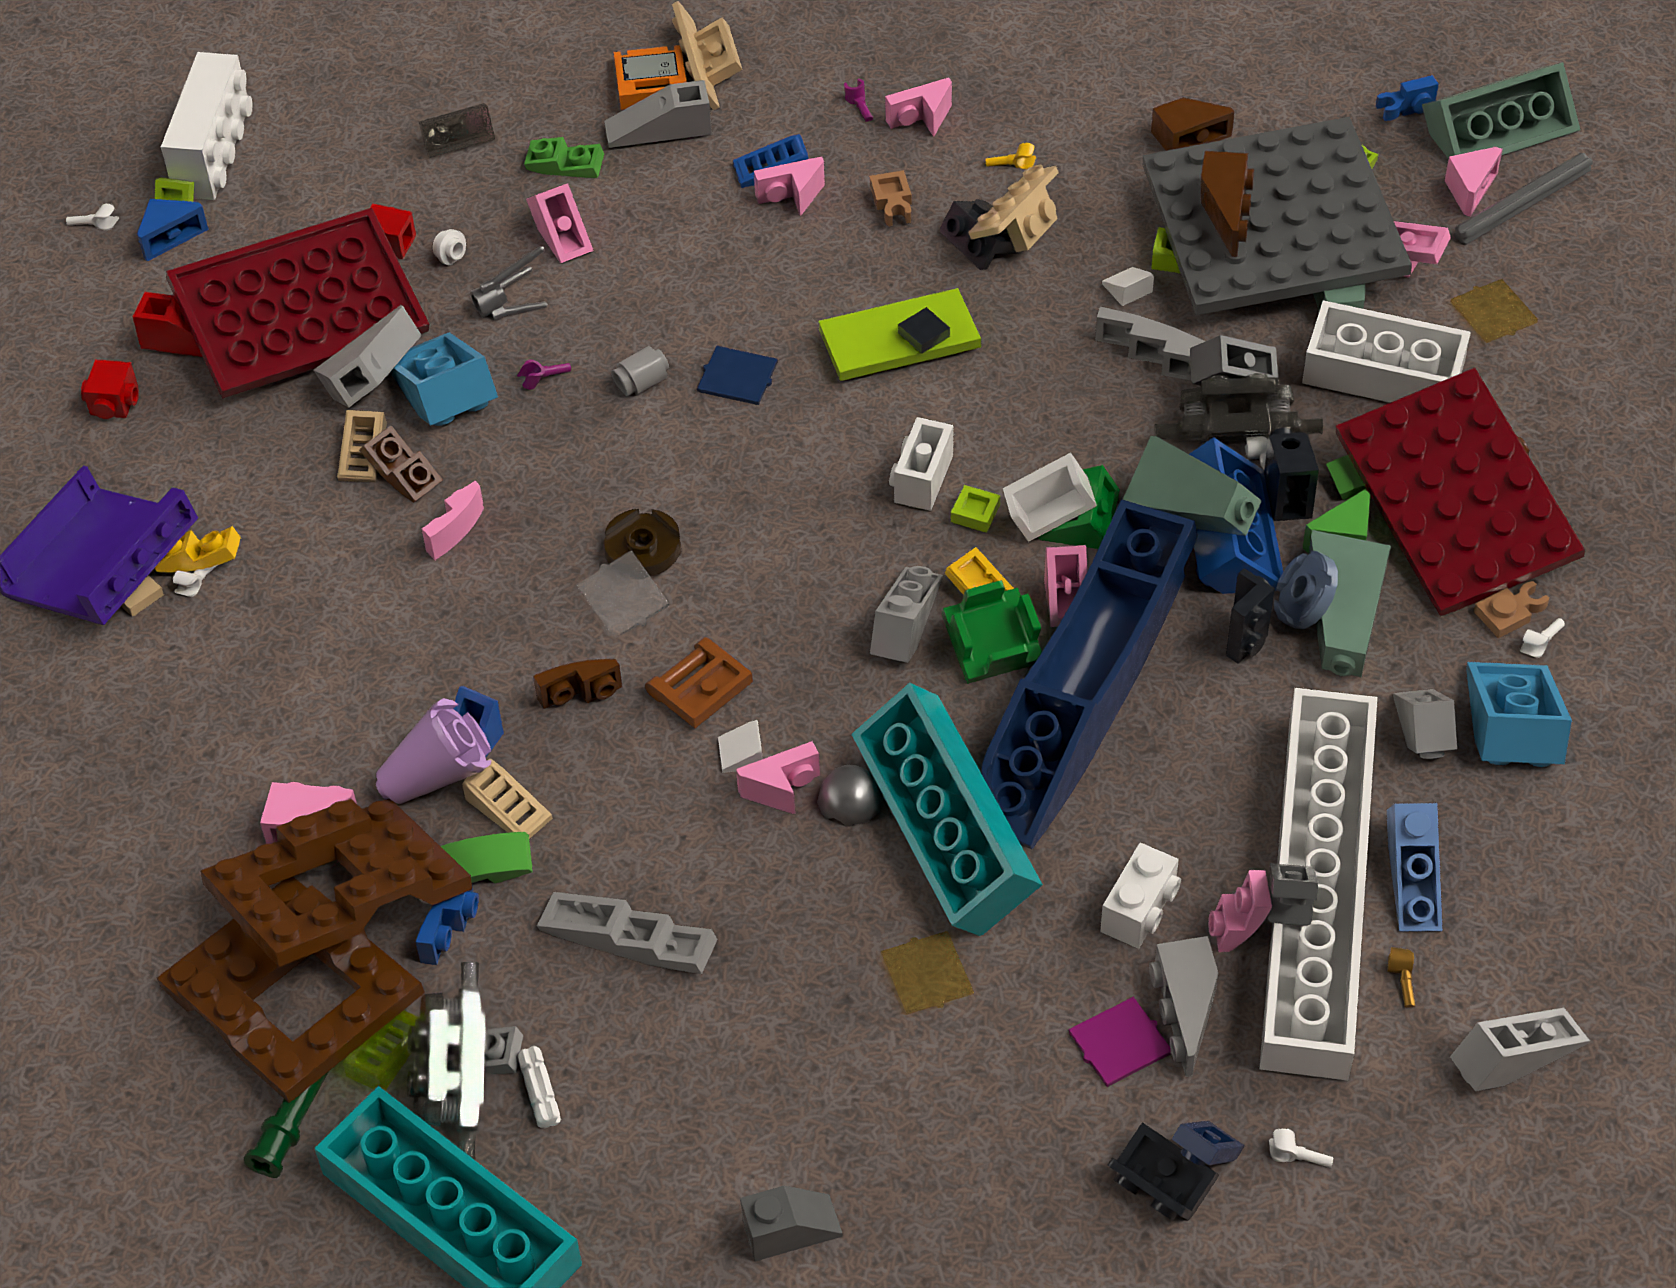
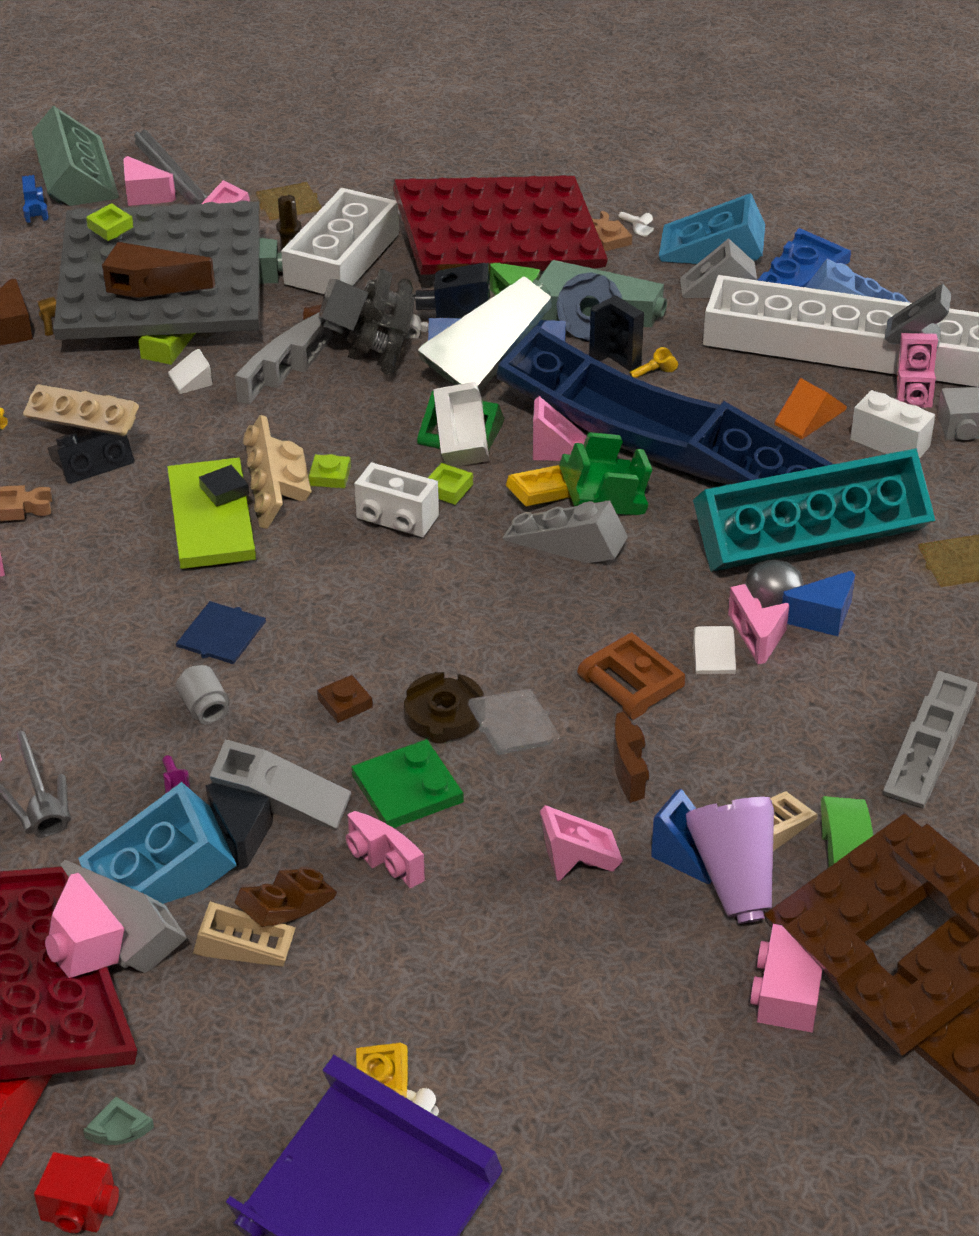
camera: 85 degrees left, 10 degrees down
(181, 406) = (117, 1123): none -> sand green tile
(330, 327) = (83, 930): none -> bright pink slope
(459, 647) = (576, 839): none -> bright pink slope
(479, 419) = (241, 818): none -> black slope
(519, 433) = (290, 788): none -> light grey slope
(545, 531) = (407, 784): none -> green plate
(652, 473) = (344, 698): none -> reddish brown plate
(817, 837) = (821, 604): none -> blue slope
(972, 375) = (275, 470): none -> tan bracket
(987, 416) = (329, 471): none -> lime plate
(1177, 822) = (808, 410): none -> orange slope
(1238, 674) = (662, 359): none -> yellow hand
(1309, 146) = (109, 222): none -> lime plate
(1399, 298) = (288, 225): none -> dark brown axle
(1479, 809) = (803, 259): none -> blue wing

